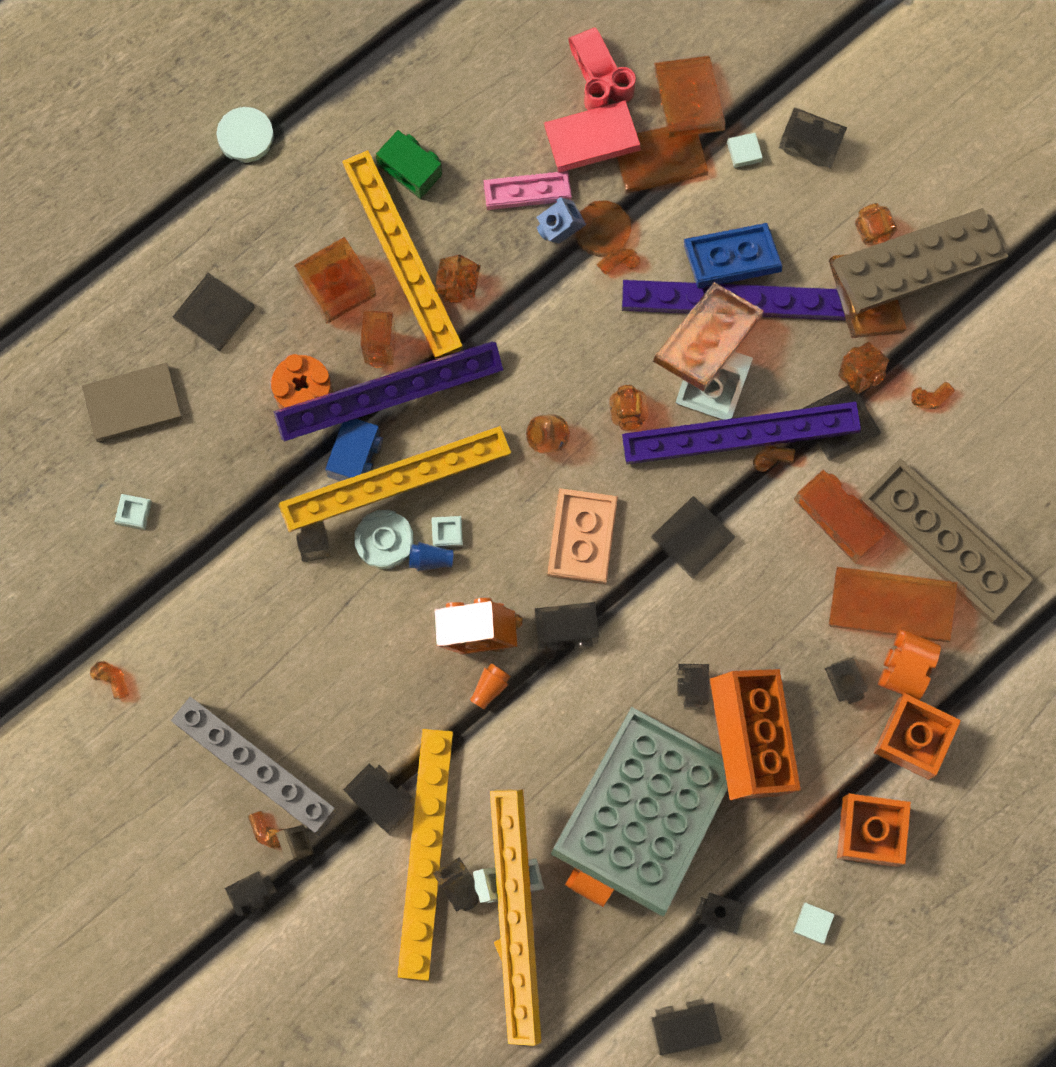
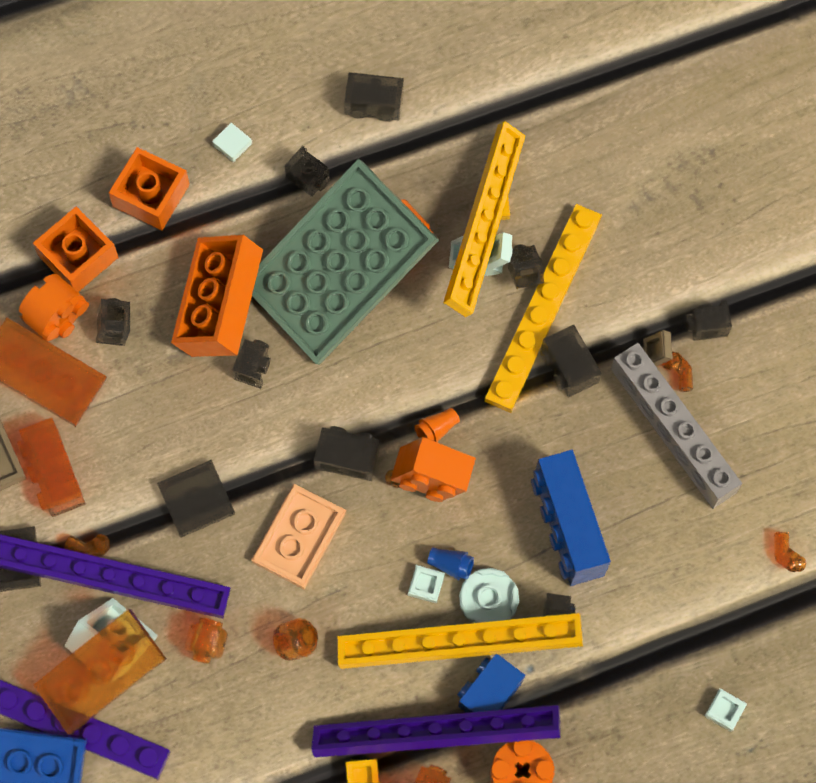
camera: 160 degrees left, 5 degrees down
(324, 624) = (571, 518): none -> blue brick

